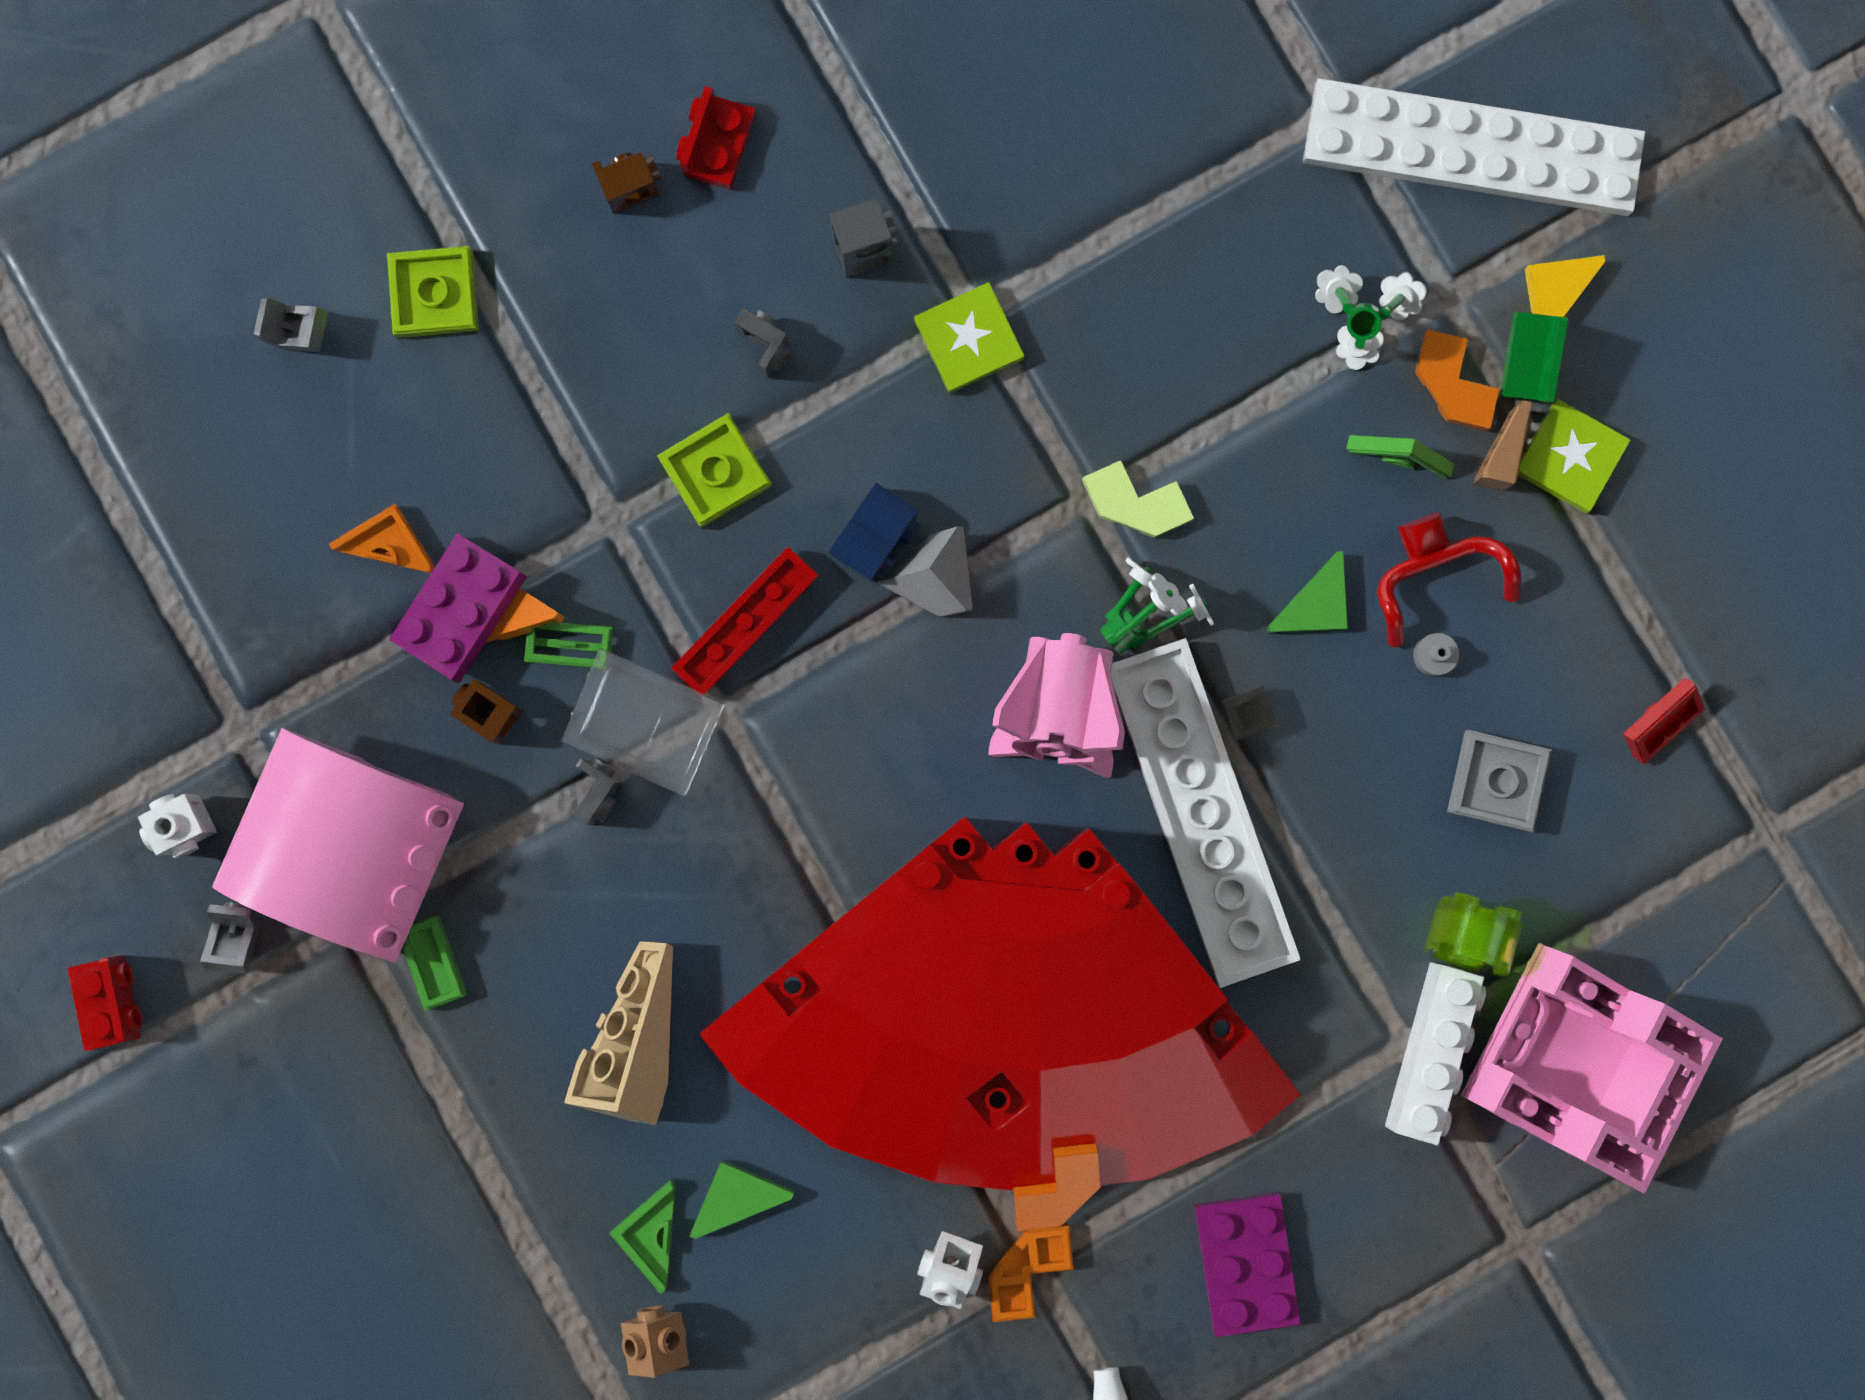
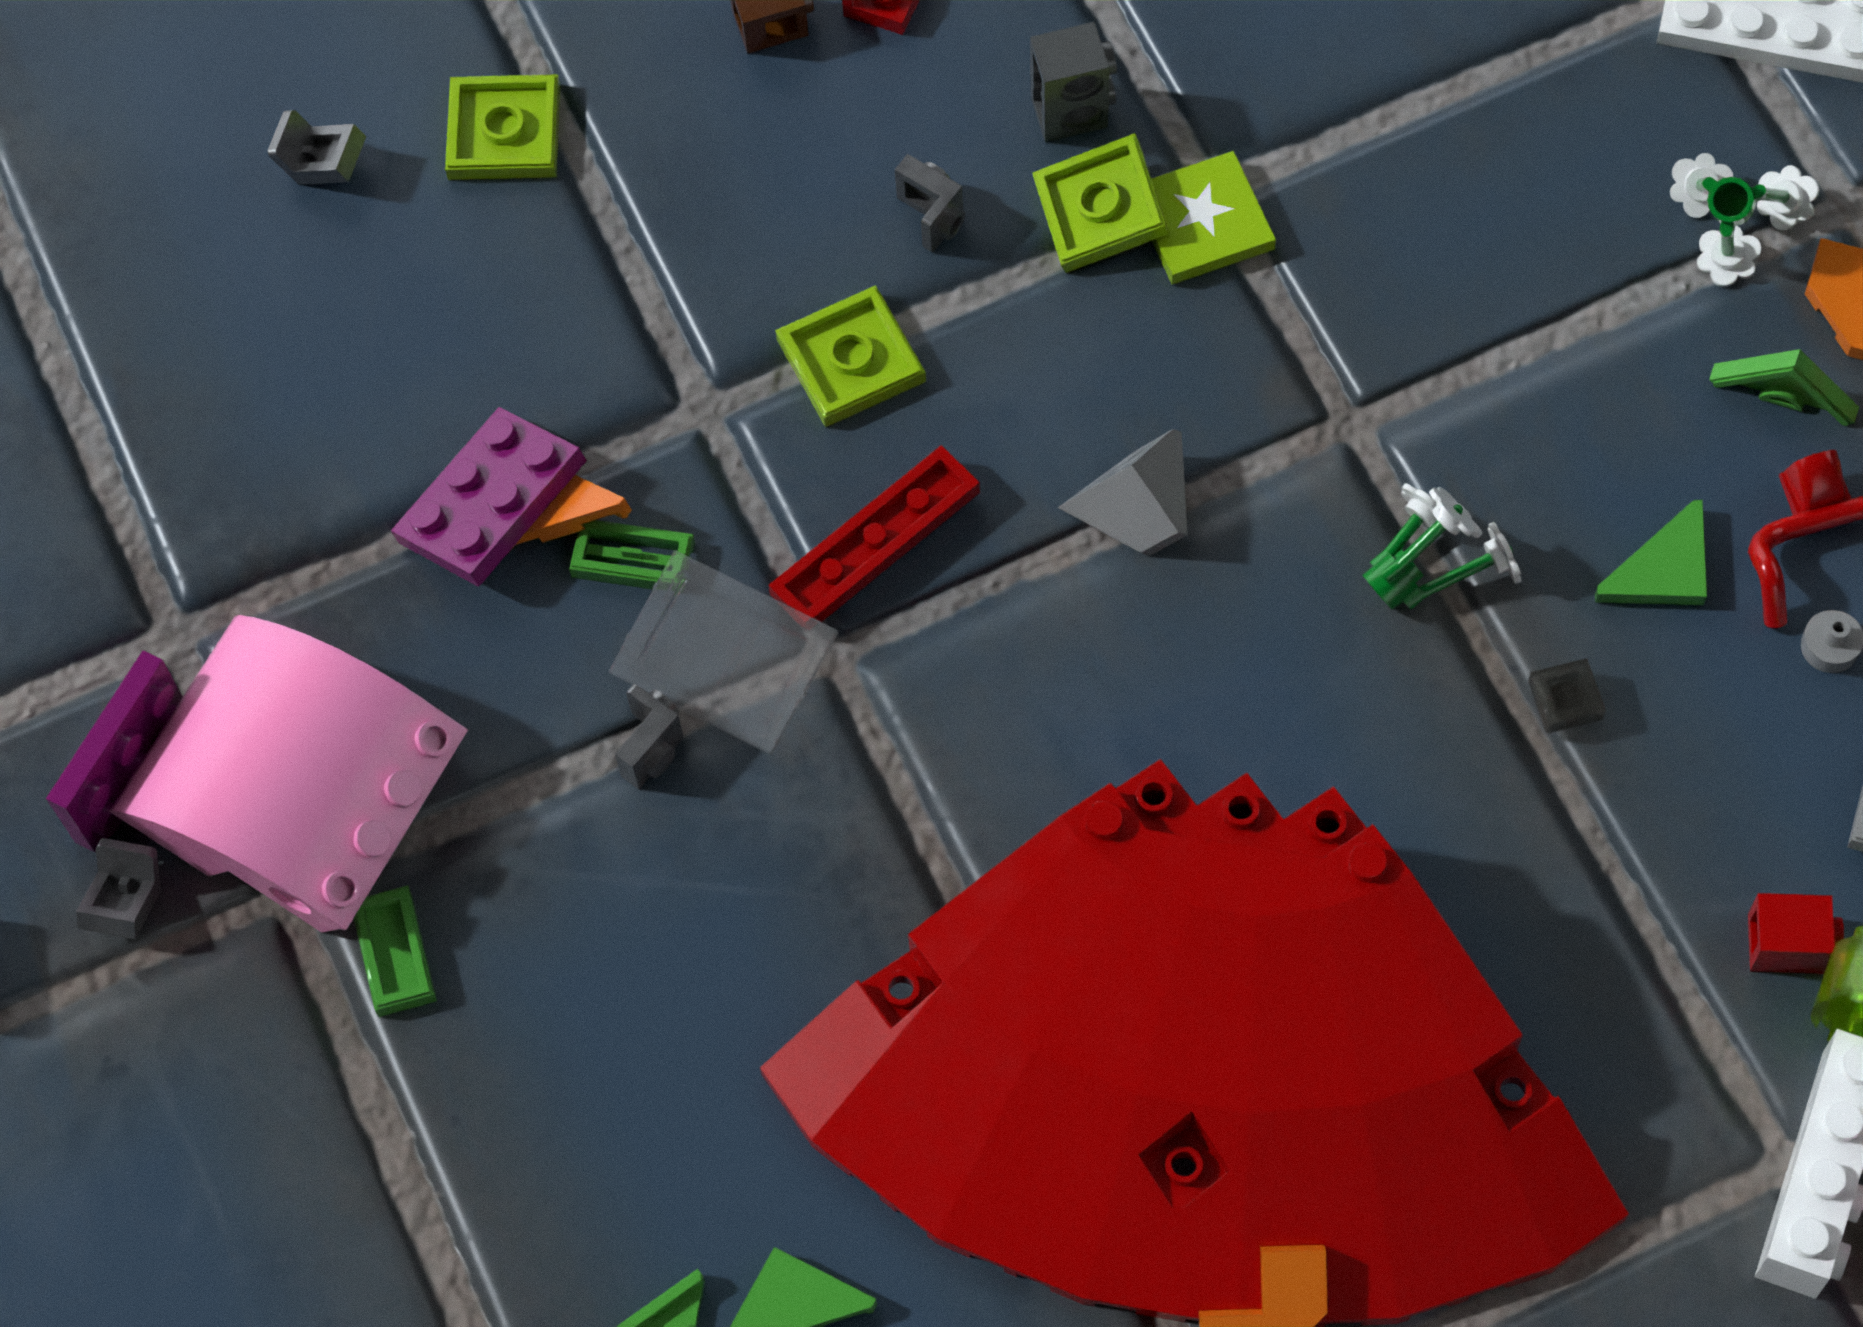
camera: 10 degrees right, 20 degrees down
(175, 825) = (59, 730): white brick -> none
(209, 840) = (114, 751): none -> magenta plate
(387, 540) = (402, 414): orange tile -> none
(467, 711) = (505, 604): reddish brown brick -> none
(630, 1058) = (662, 1091): tan wedge -> none
(875, 533) = (1060, 438): dark blue brick -> none
(891, 333) = (1100, 203): none -> lime tile
(1061, 707) = (1301, 656): bright pink brick -> none
(1118, 502) = (1438, 441): yellowish green tile -> none
(1202, 813) = (1498, 823): white plate -> none
(1410, 885) = (1792, 933): none -> red brick

